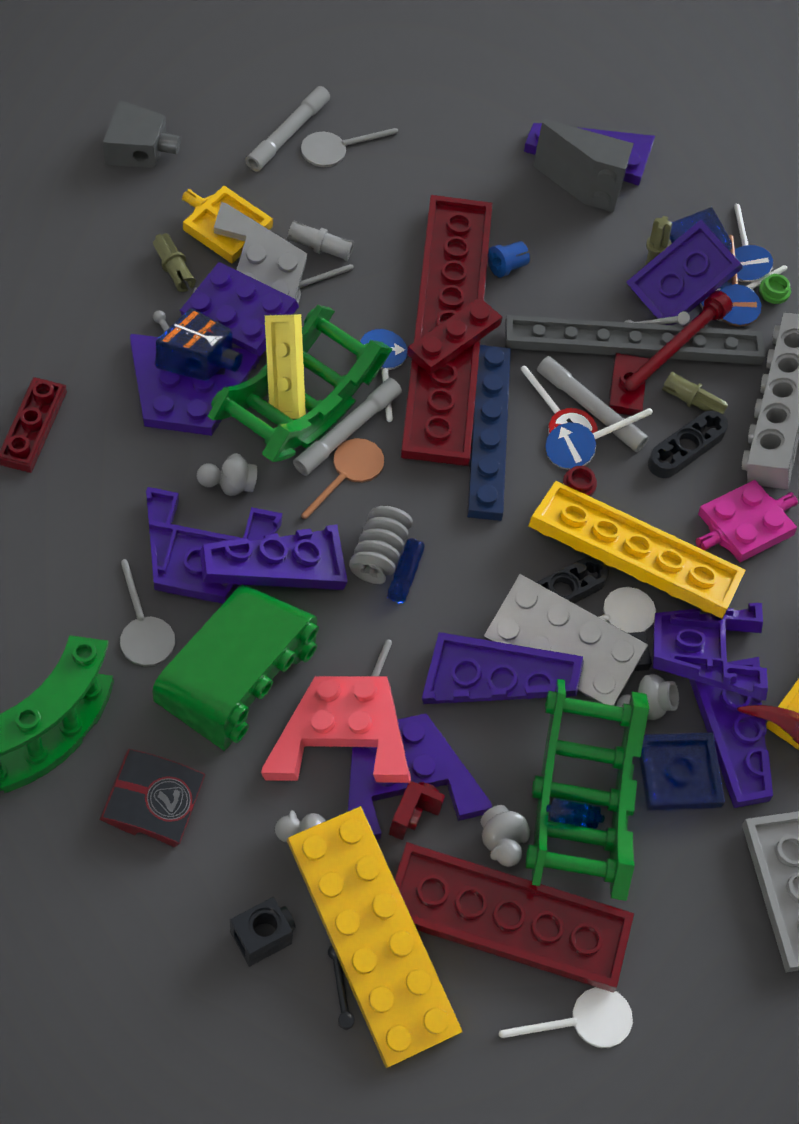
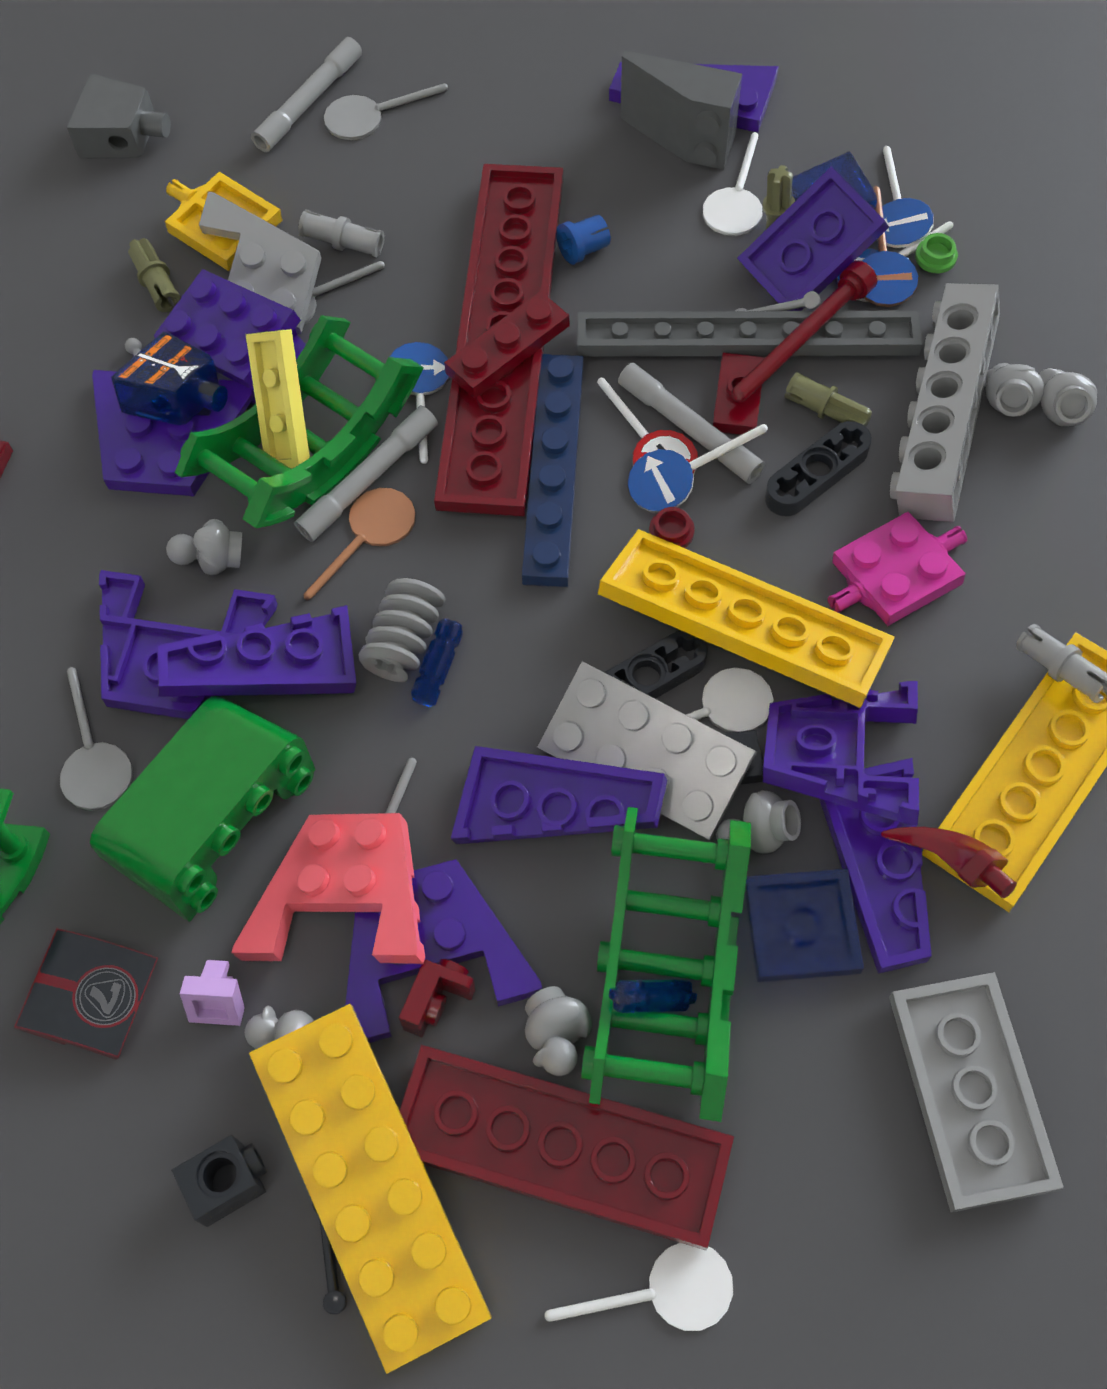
camera: 10 degrees right, 5 degrees up
(250, 803) = (212, 996): none -> lavender tile
(620, 243) = (734, 209): none -> white piece

